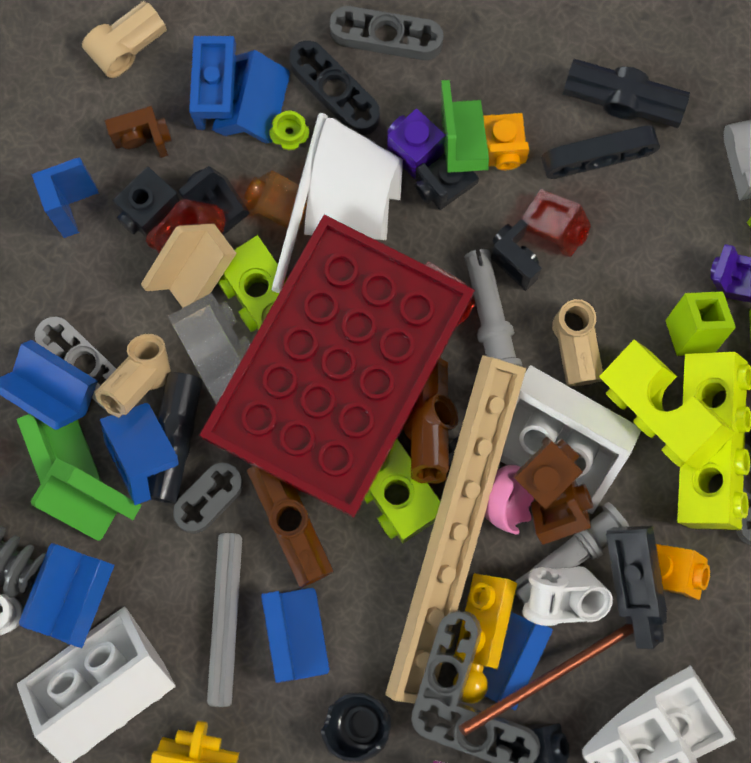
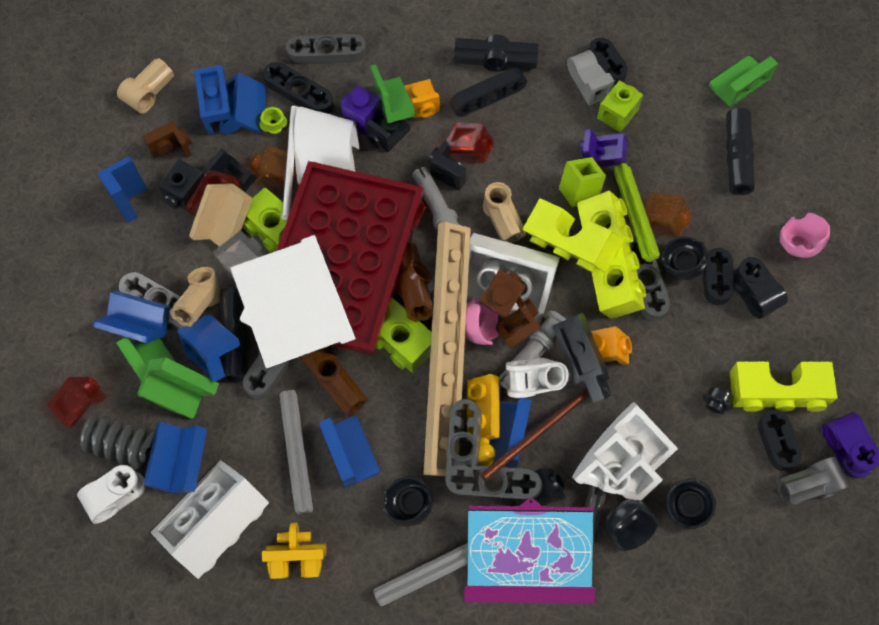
camera: 15 degrees left, 10 degrees down
(258, 421) = (291, 302): none -> white sticker

